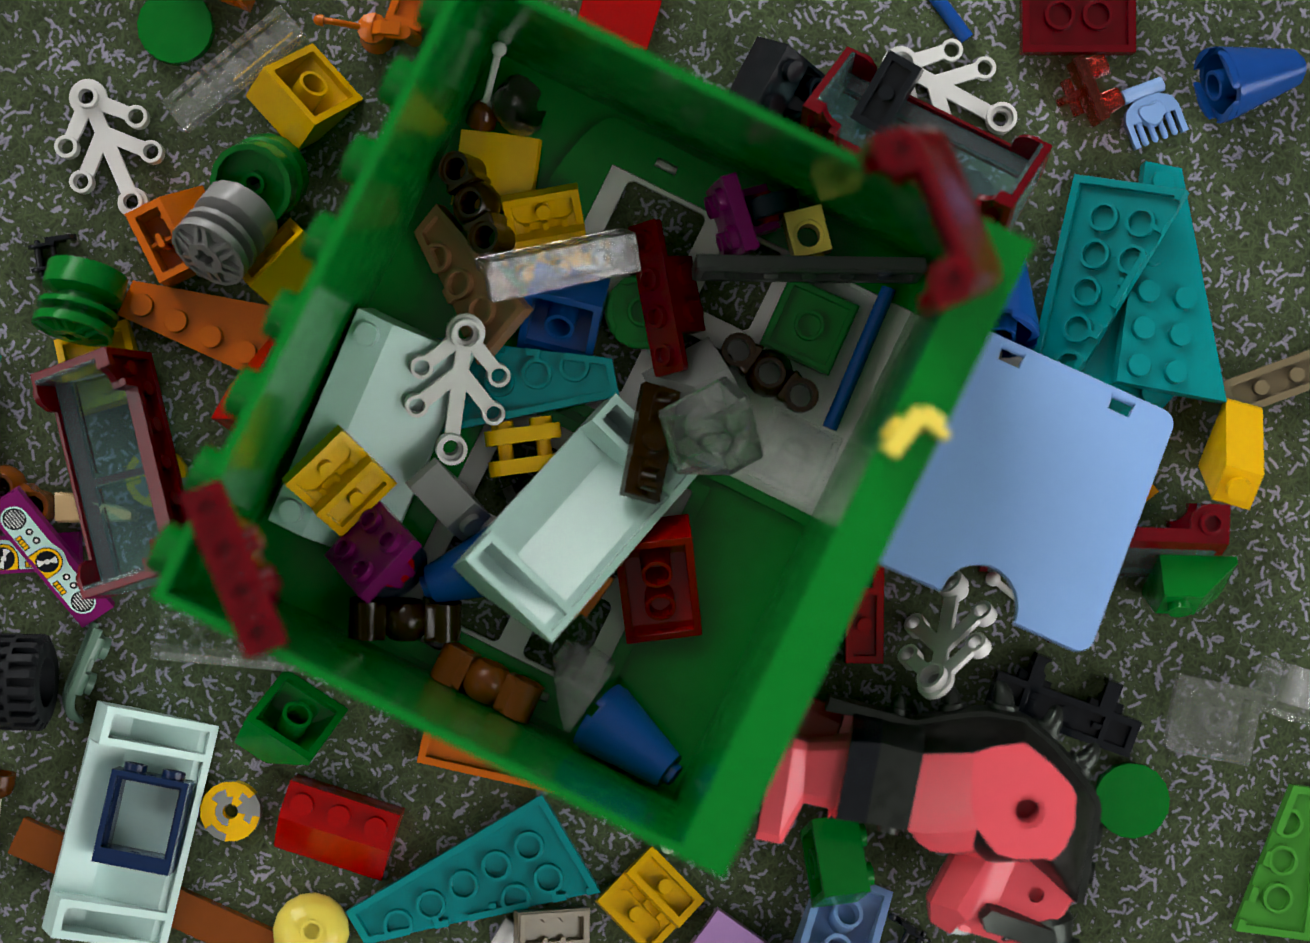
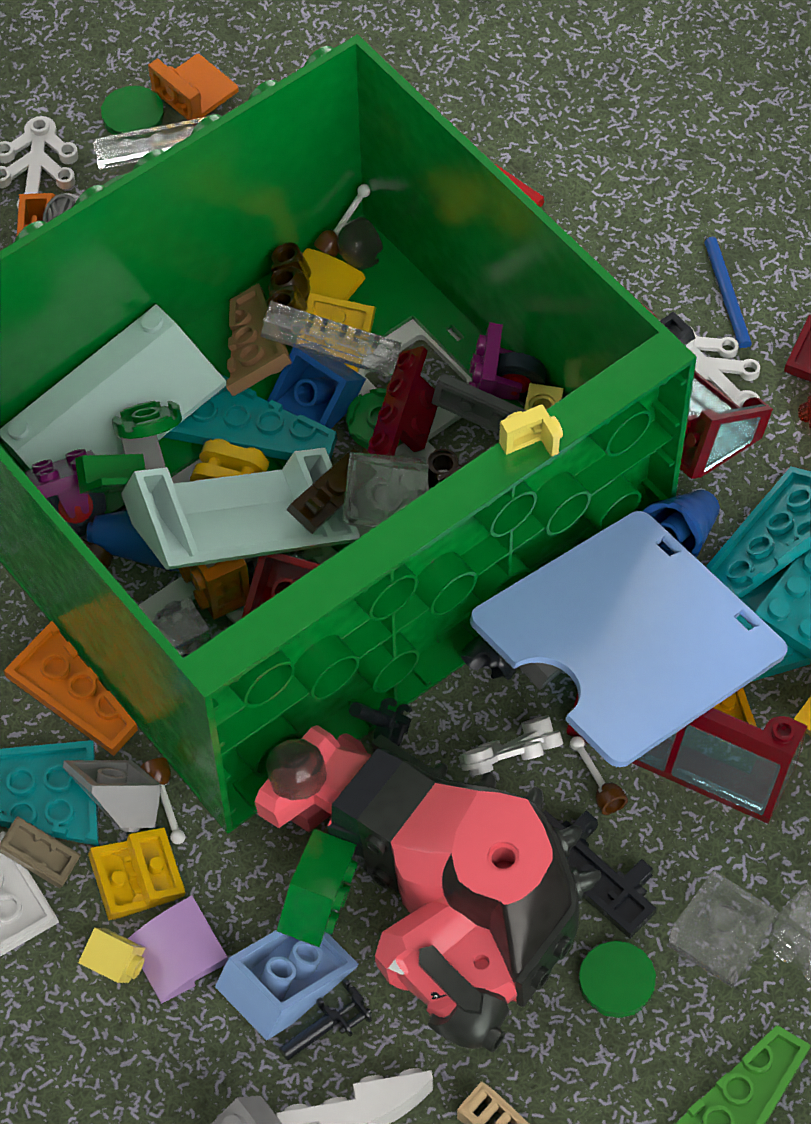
camera: 30 degrees right, 30 degrees down
(339, 480) = (69, 418): yellow slope -> none
(424, 453) = (146, 419): none -> green tile
(434, 546) = (107, 472): none -> green panel
(458, 381) = (204, 387): white plant -> none
(590, 846) = (119, 790): none -> light grey slope
(788, 801) = (296, 769): none -> clear smoke hair
(866, 629) = (449, 718): red plate -> none
(930, 160) = (624, 319): dark red windscreen -> none
(1186, 582) = (751, 798): green slope -> none

